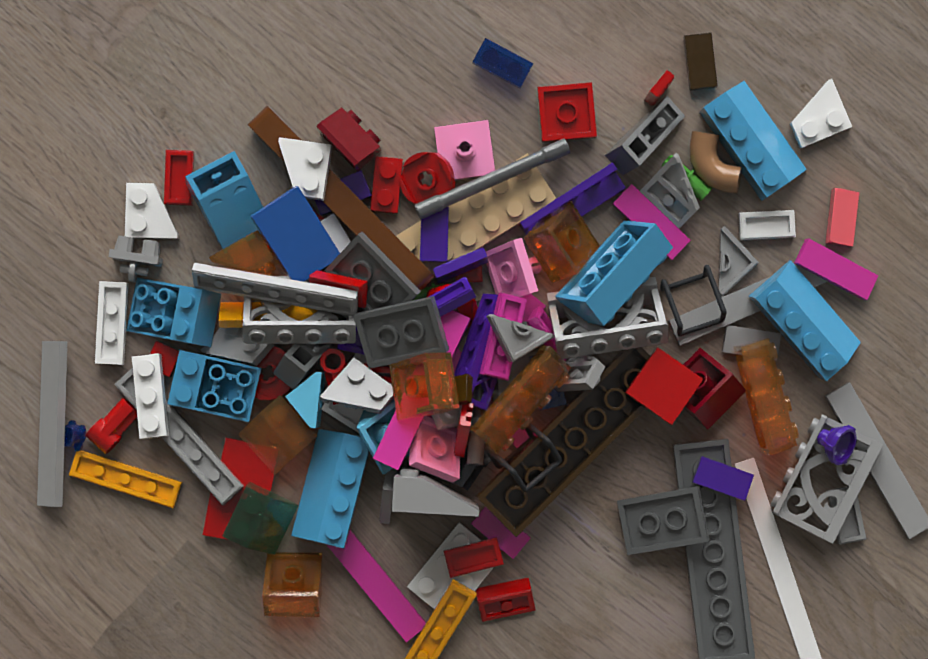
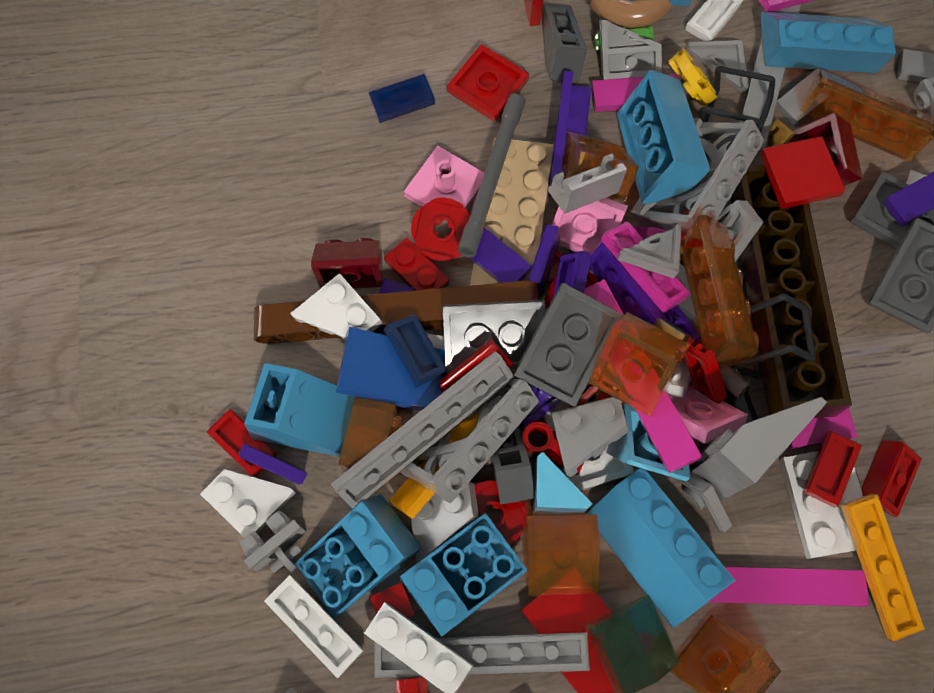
camera: 50 degrees left, 15 degrees down
(180, 211) = (272, 464): none -> dark purple tile
(321, 239) = (415, 350): none -> dark blue tile
(524, 253) = (588, 185): none -> light grey hinge
(688, 254) = (695, 80): none -> yellow plate
(697, 351) = (781, 134): none -> pearl gold tile

